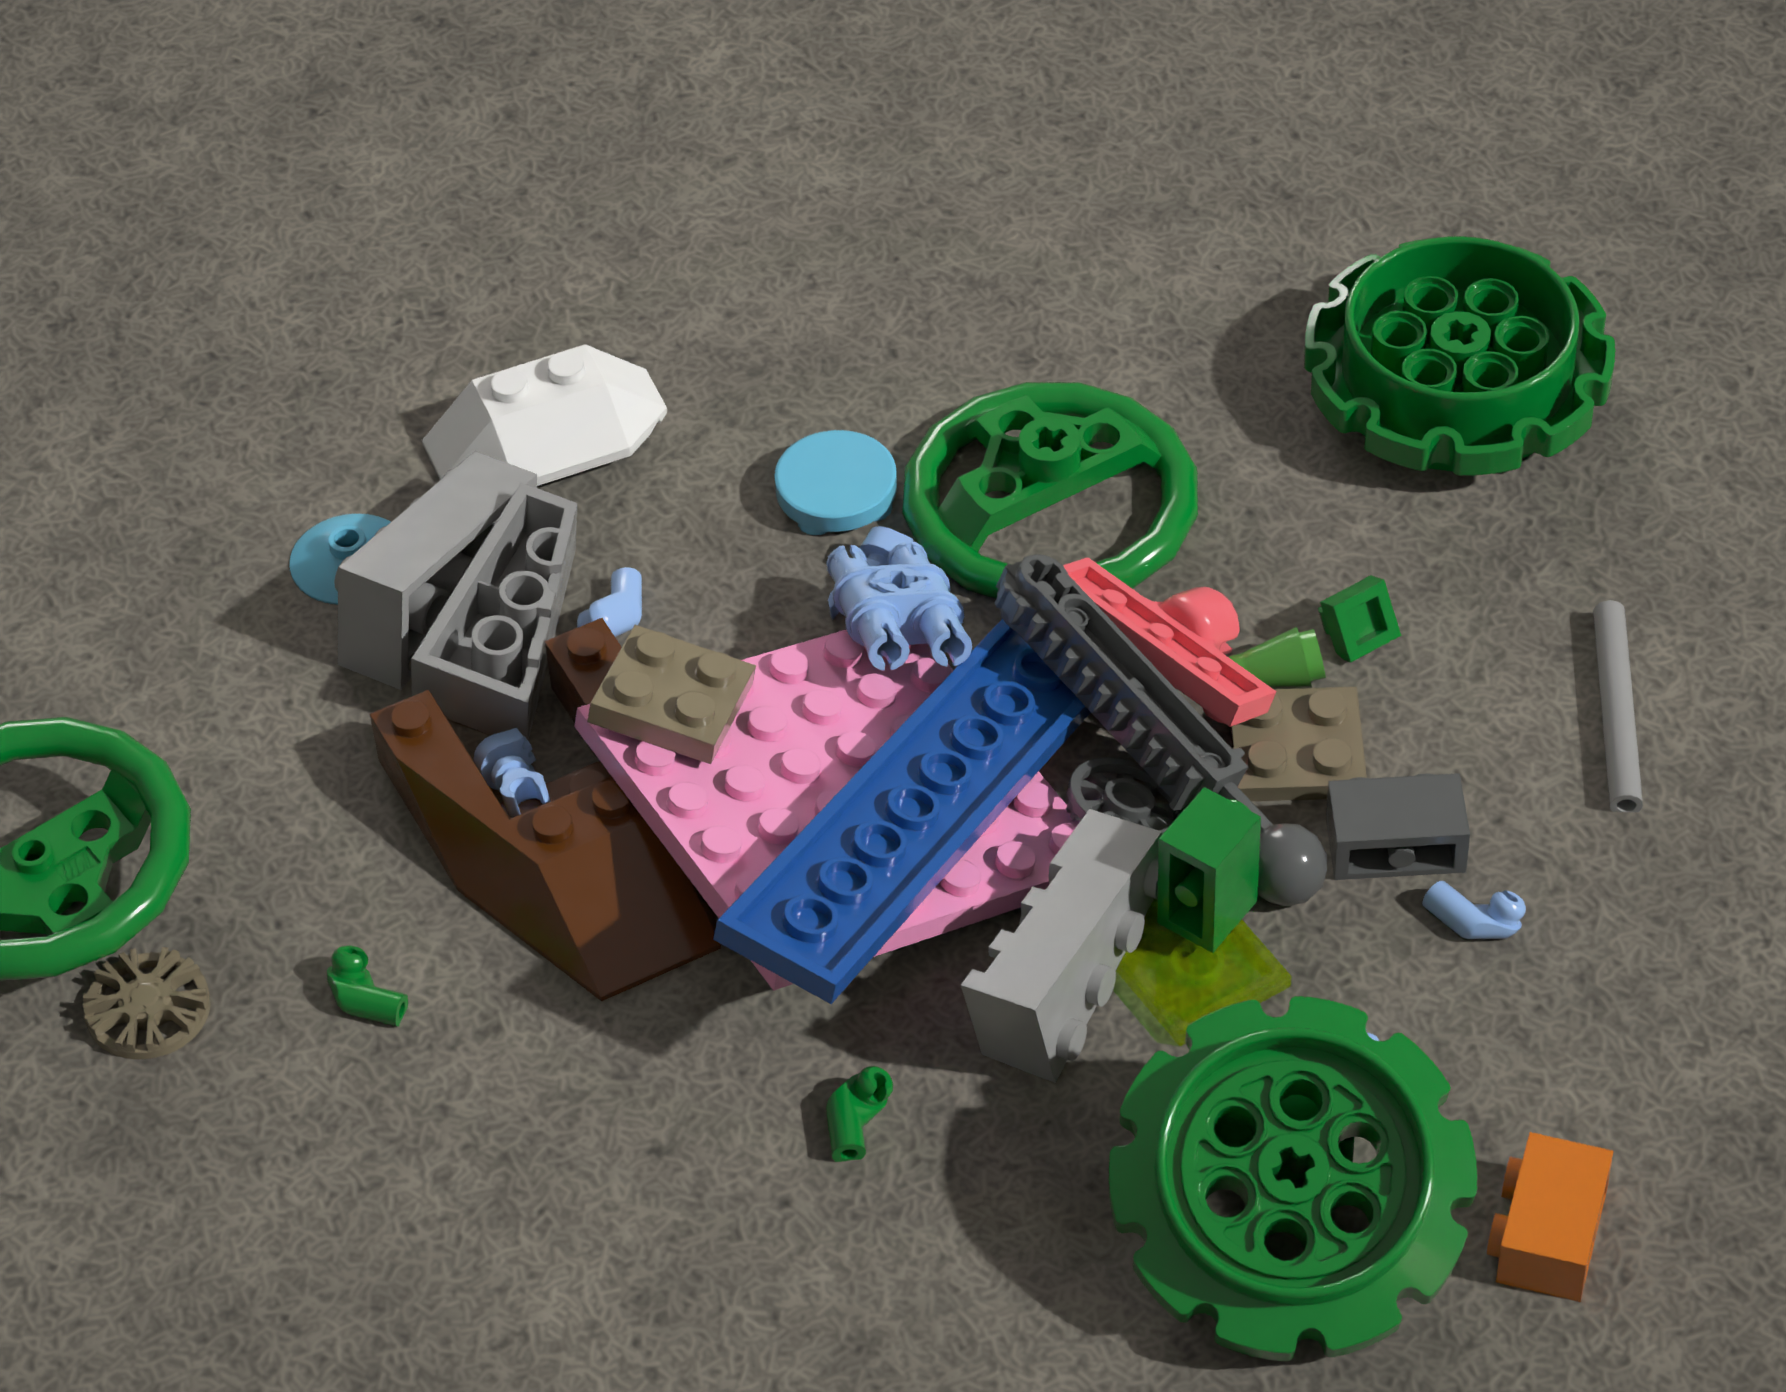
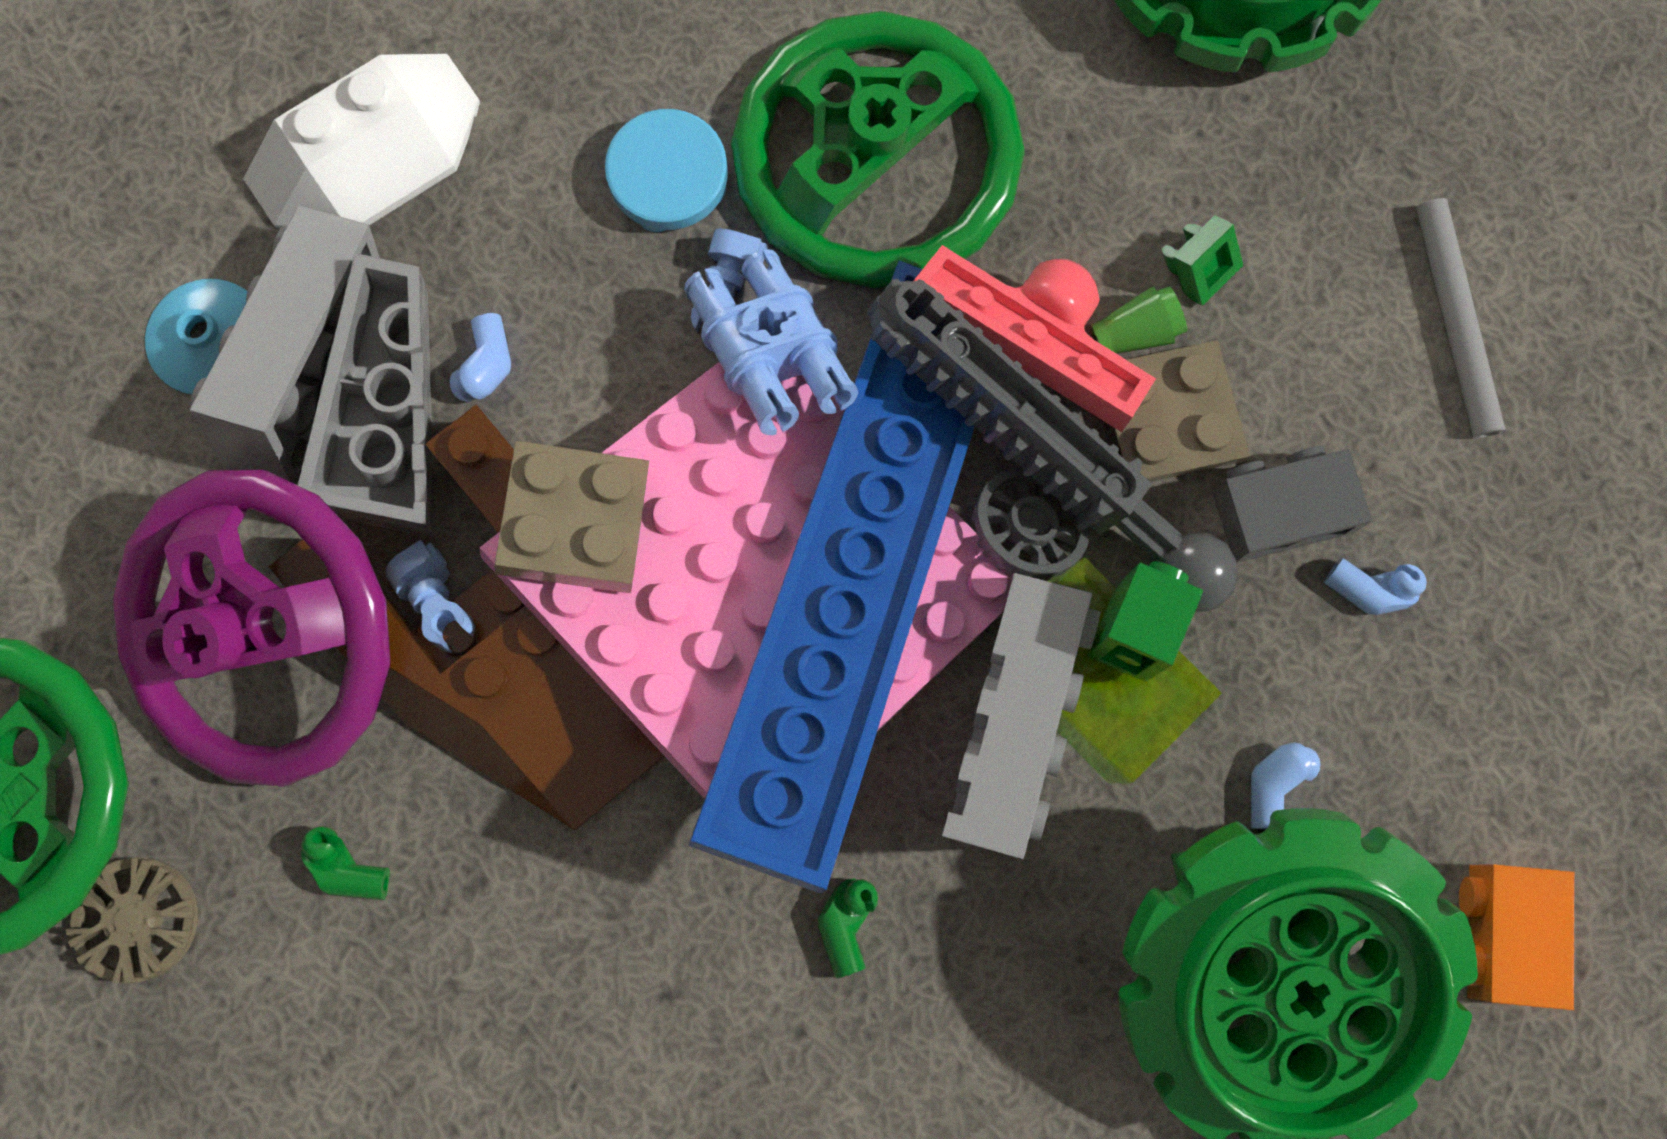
camera: 15 degrees left, 30 degrees up
(328, 740) = (230, 626): none -> magenta piece

